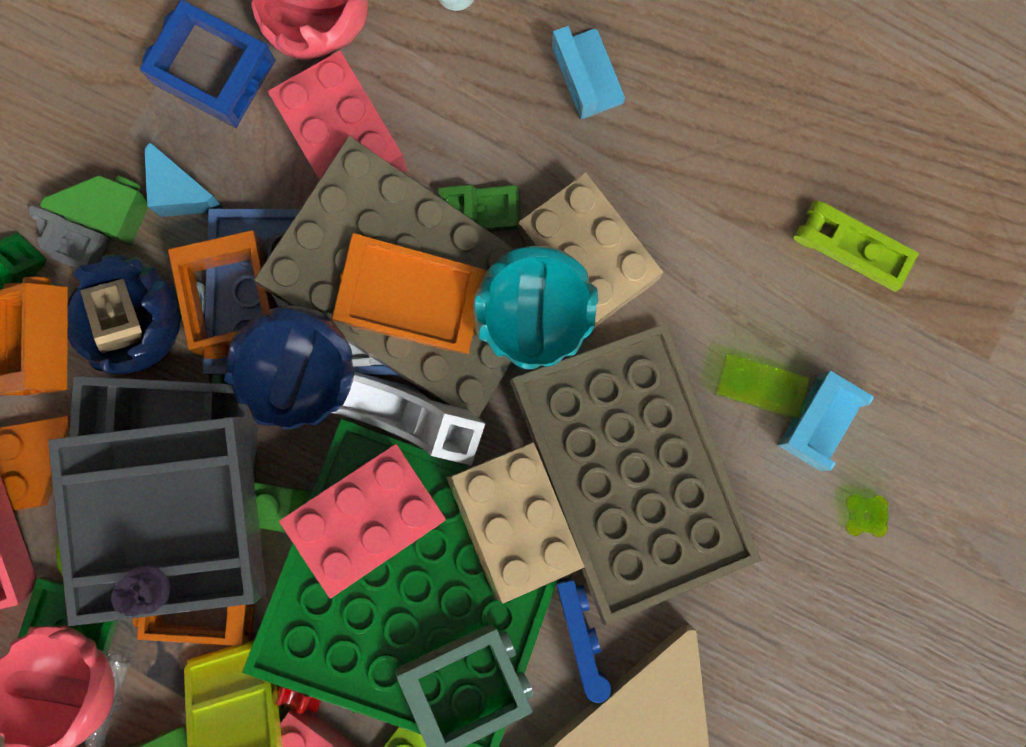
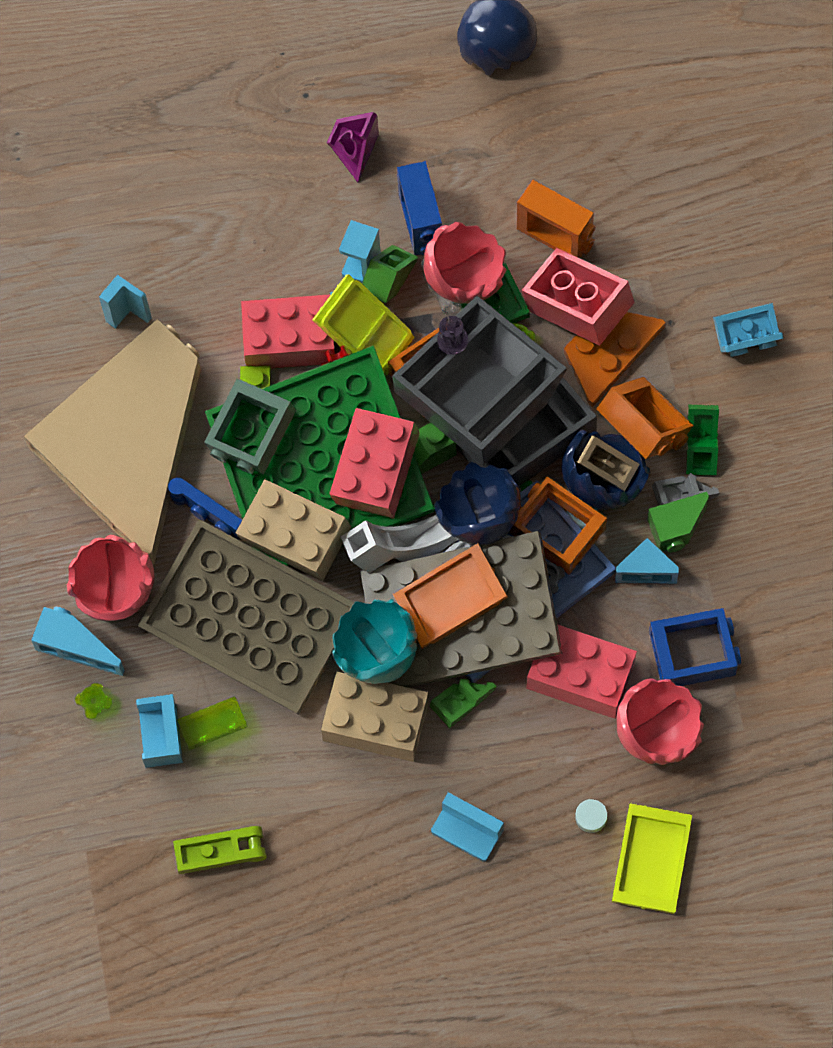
camera: 145 degrees right, 15 degrees down
(759, 634) = (110, 578): none -> coral piece
(843, 602) = (67, 638): none -> medium azure slope

